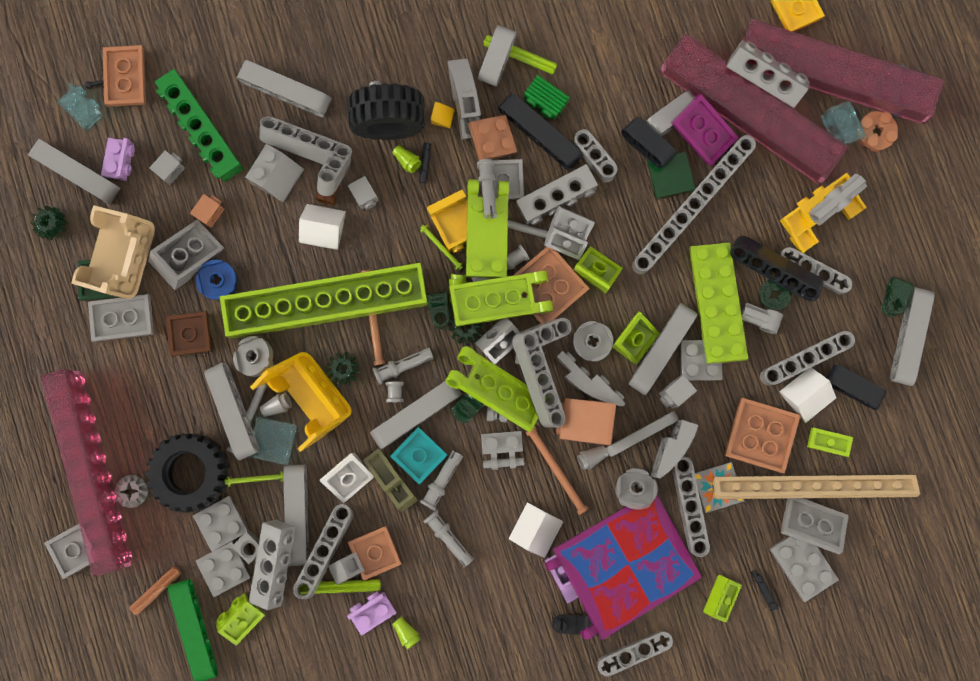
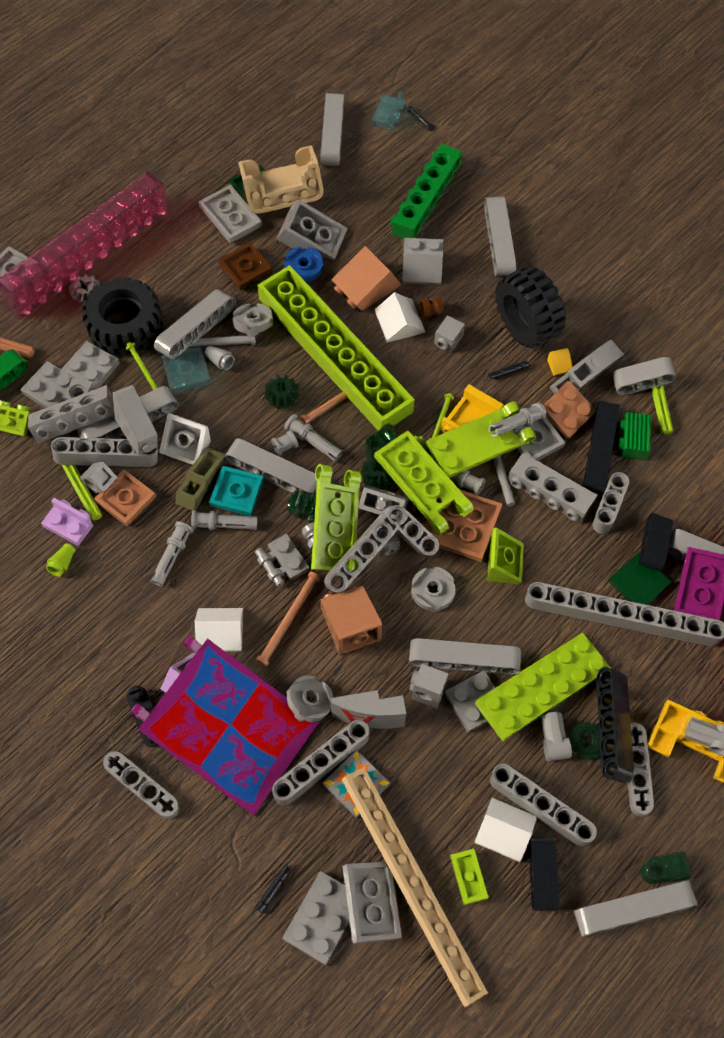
camera: 60 degrees right, 20 degrees down
(49, 222) = (280, 131): clear green gear -> none
(117, 159) = (362, 153): lavender bracket -> none
(124, 76) = (433, 126): nougat plate -> none
(168, 167) = (377, 187): light grey brick -> none
(207, 210) = (359, 230): nougat brick -> none
(267, 235) = (365, 280): none -> nougat slope
(307, 144) = (464, 292): light grey beam -> none
(311, 391) = (248, 379): yellow windscreen -> none
(316, 515) = (133, 420): none -> light grey slope
(407, 159) = (502, 354): lime cone -> none
(569, 233) = (523, 514): light grey slope -> none
(591, 457) = (319, 643): light grey cone -> none
(595, 388) = (389, 603): light grey slope -> none
(636, 338) = (460, 622): lime slope -> none
(642, 433) = (366, 676): light grey beam -> none
(722, 598) = (242, 849): lime slope -> none
(762, 435) = (435, 800): nougat plate -> none

